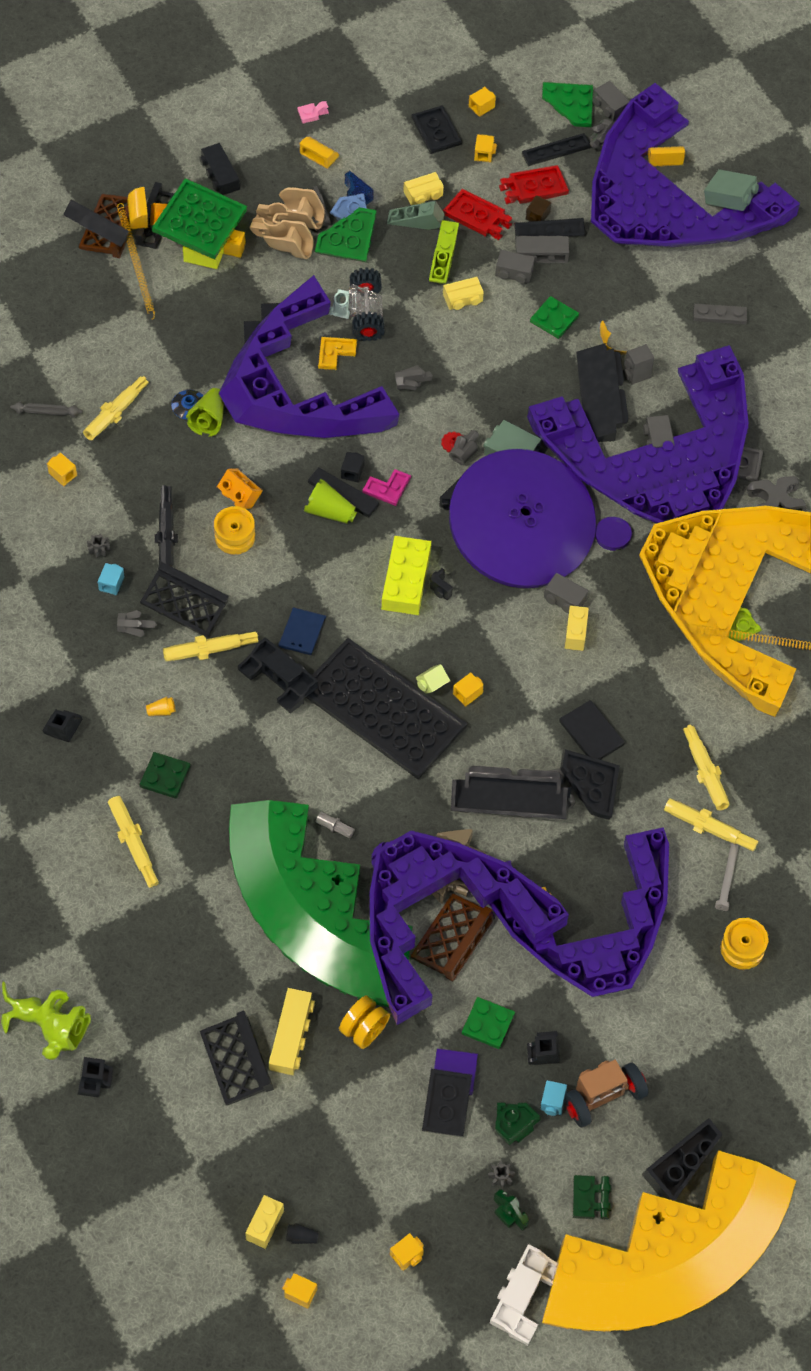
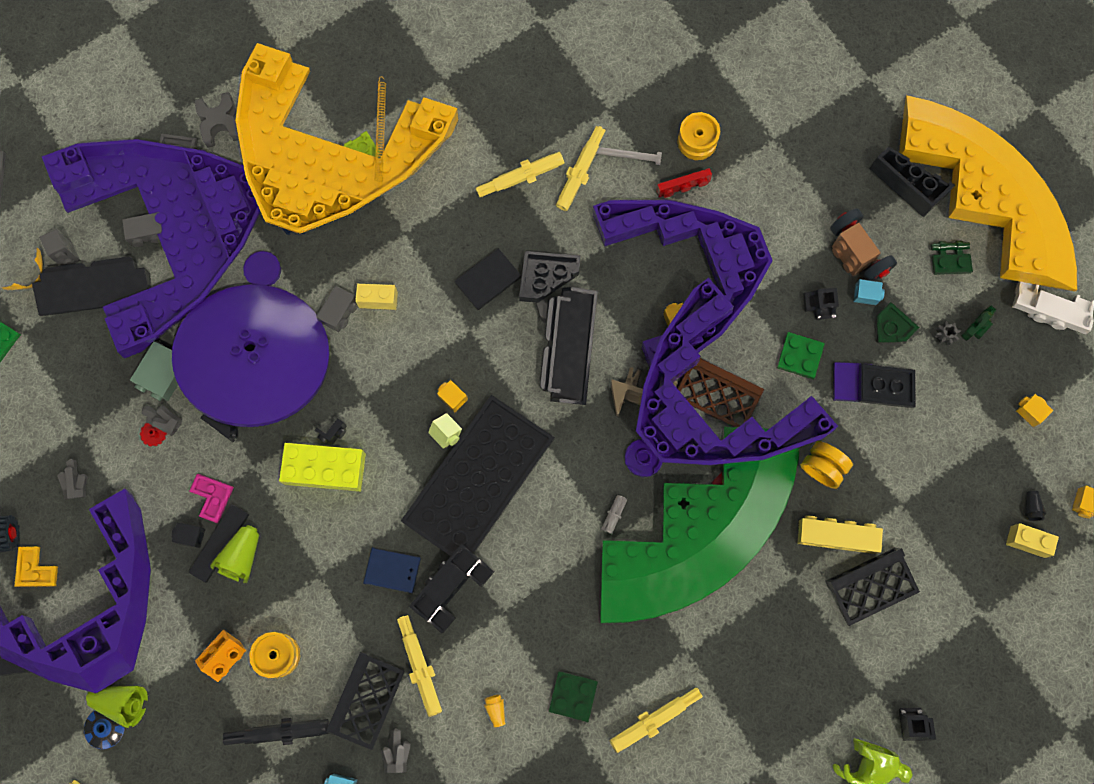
camera: 90 degrees left, 15 degrees up
(690, 926) = (684, 183): none -> red plate

